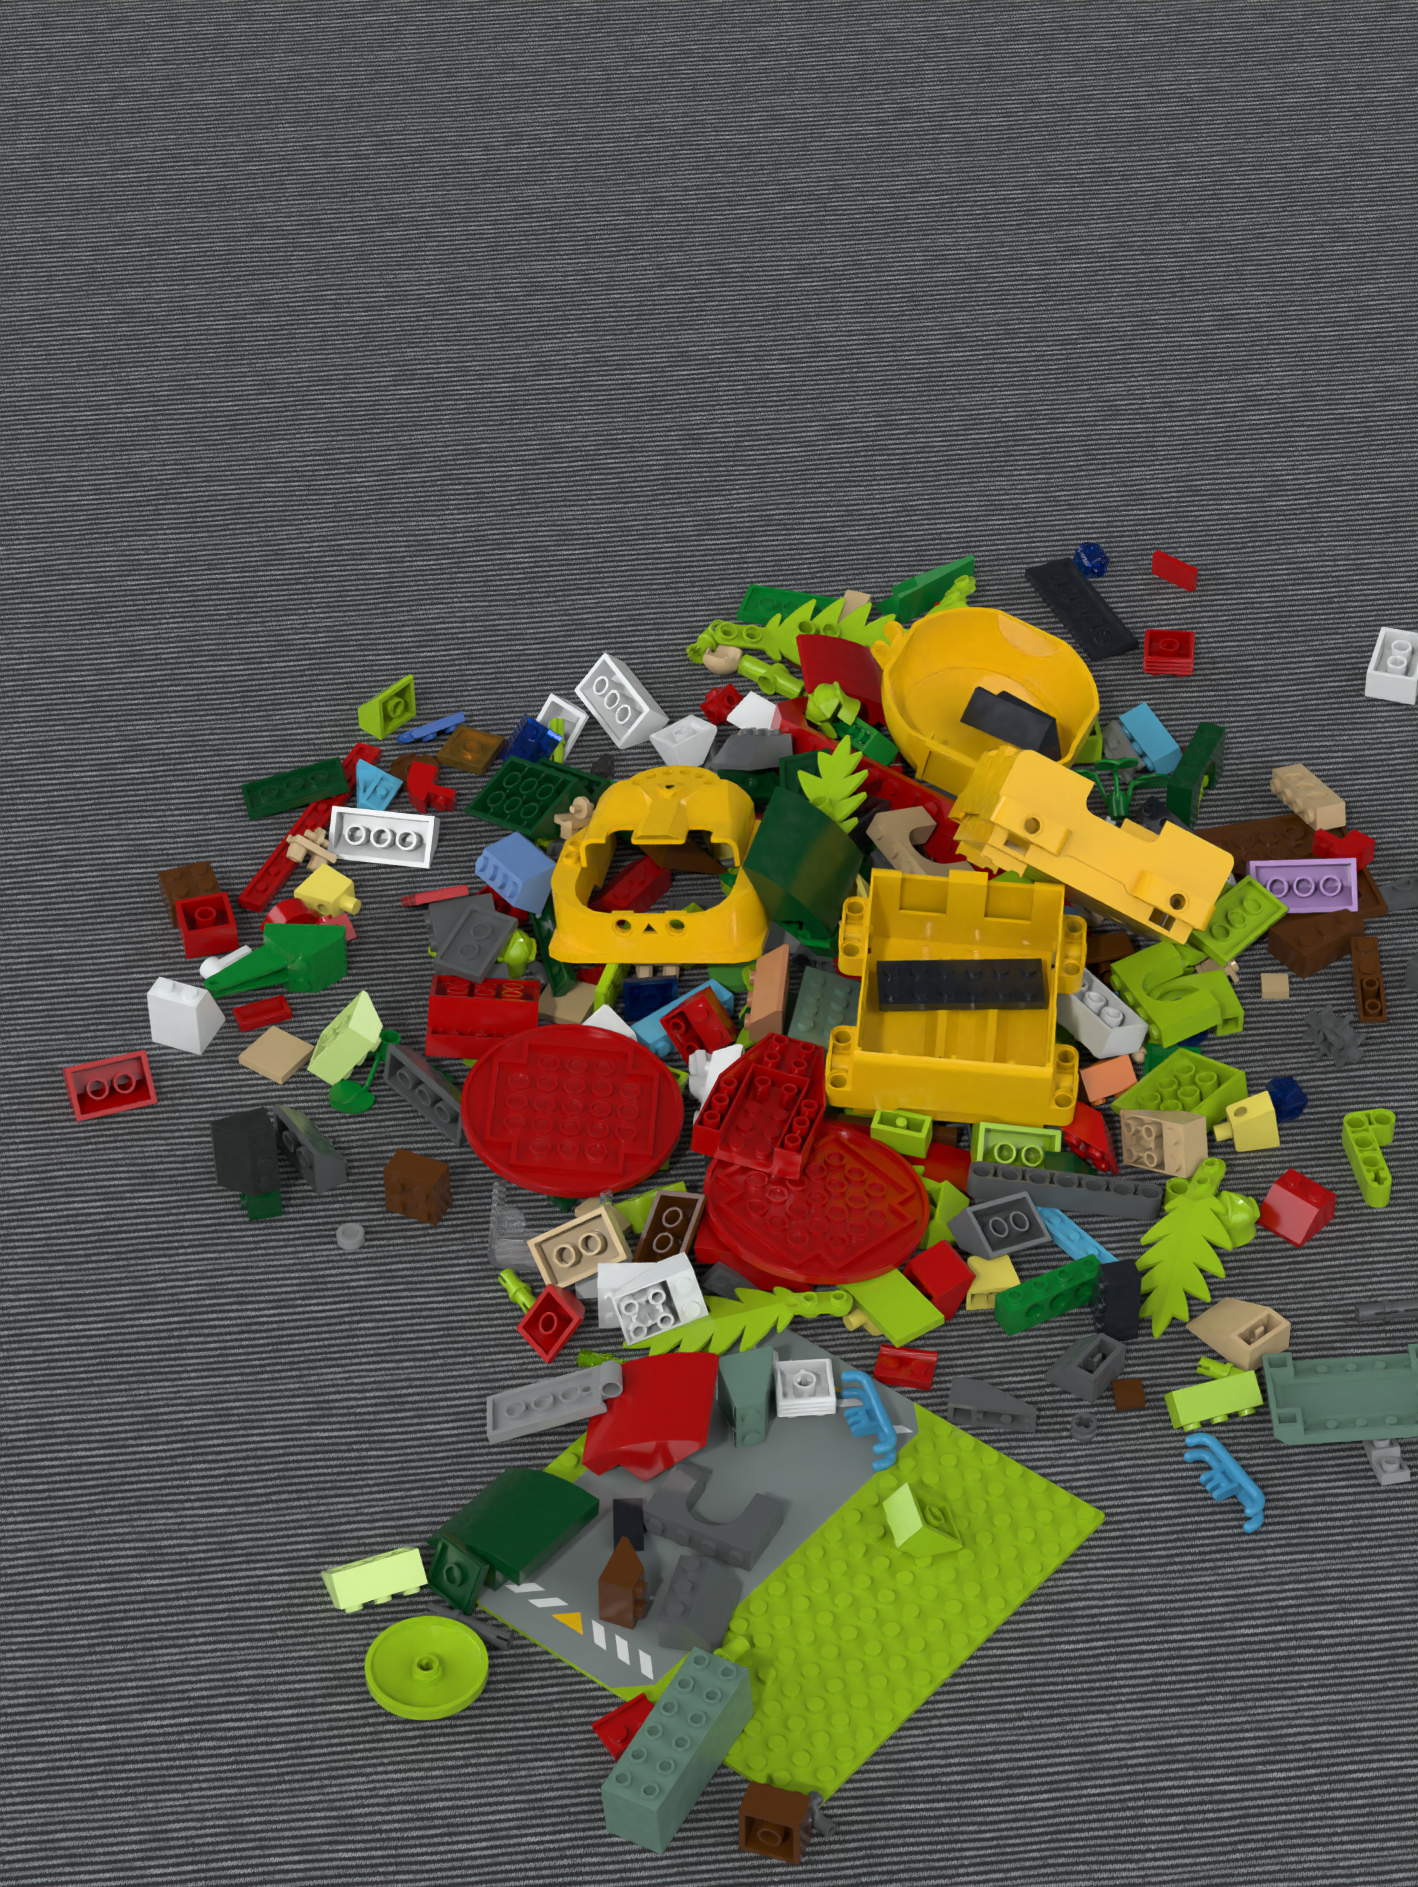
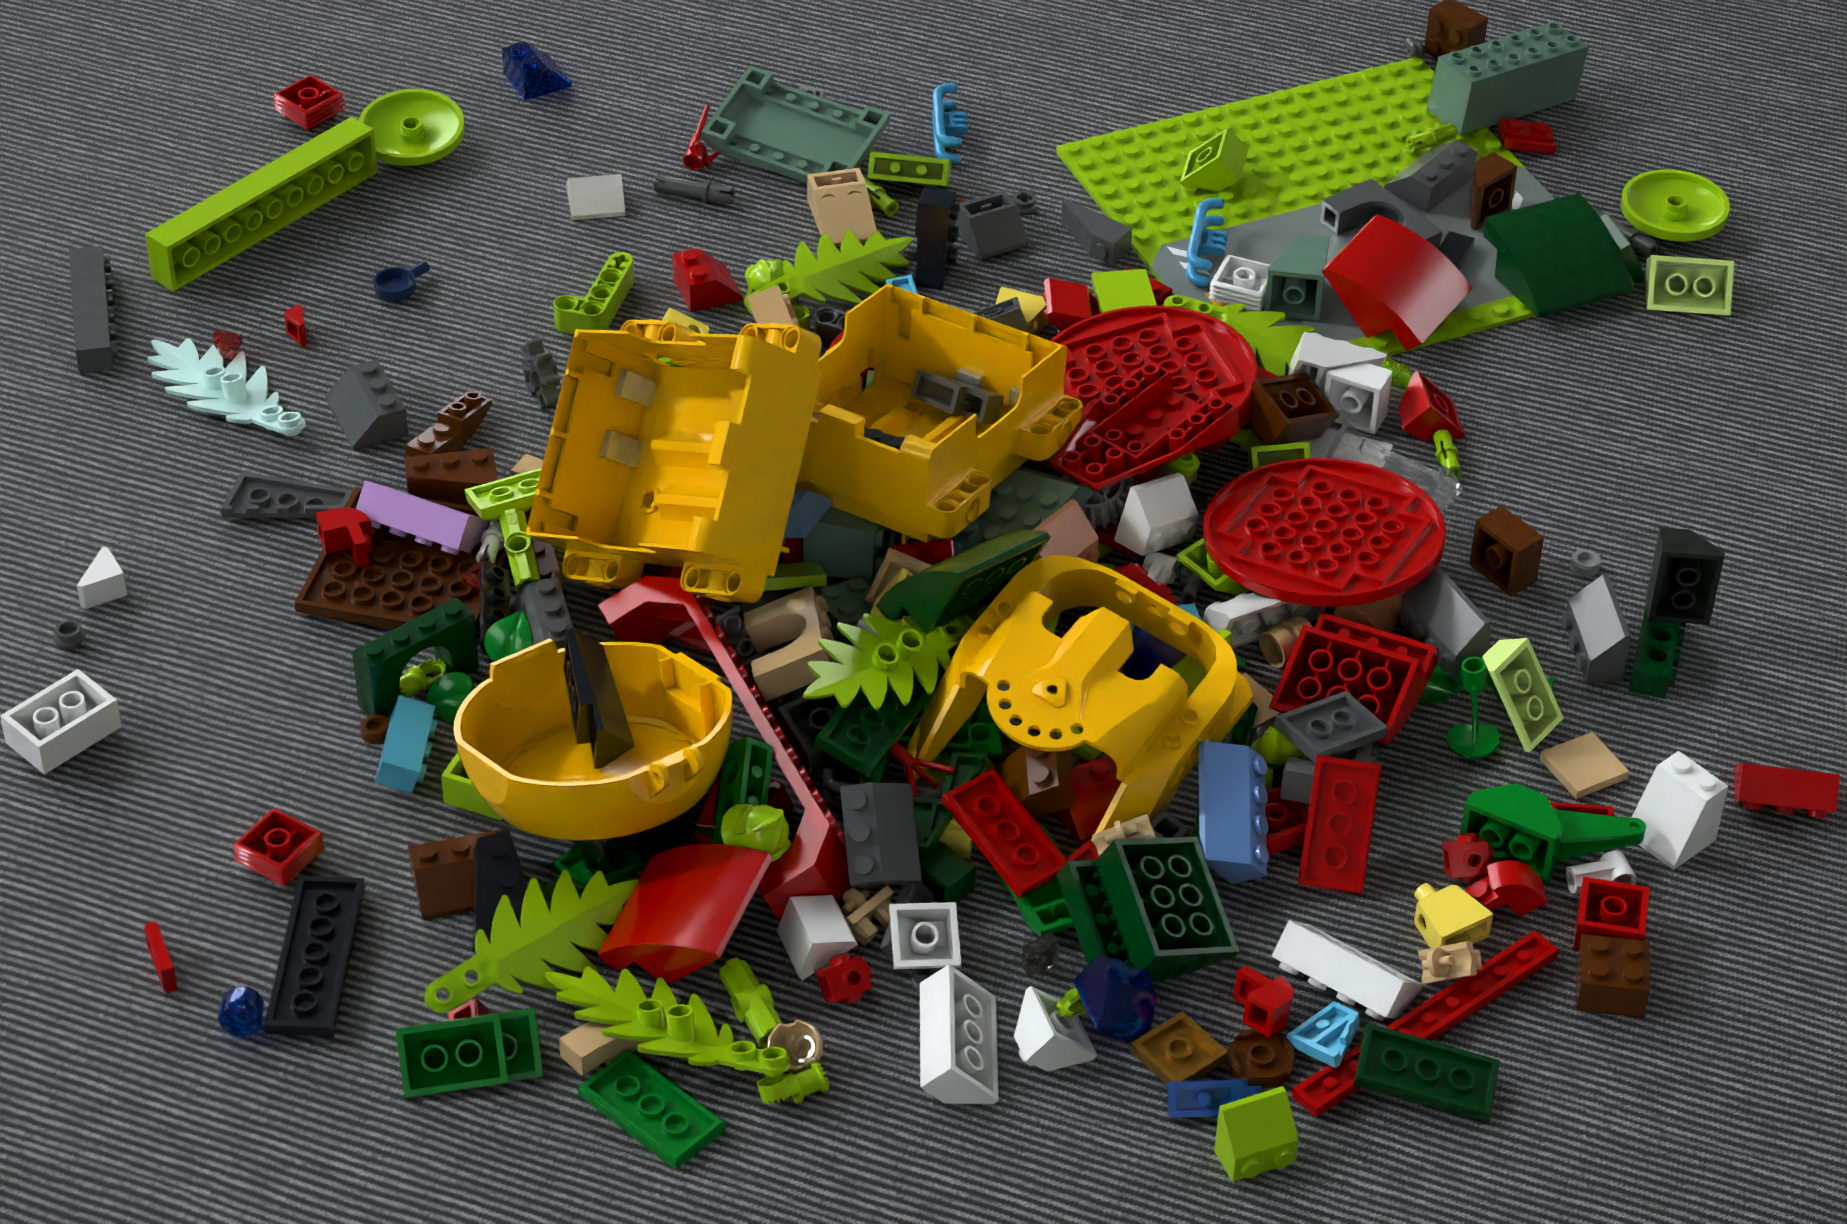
camera: 155 degrees left, 0 degrees up
(552, 1402) = (1473, 333): light grey hinge -> none
(578, 1246) = (1385, 422): tan brick -> none
(1046, 1295) = (972, 283): green brick -> none
(1117, 745) = (443, 748): light grey plate -> none
(1308, 797) = (323, 561): tan brick -> none

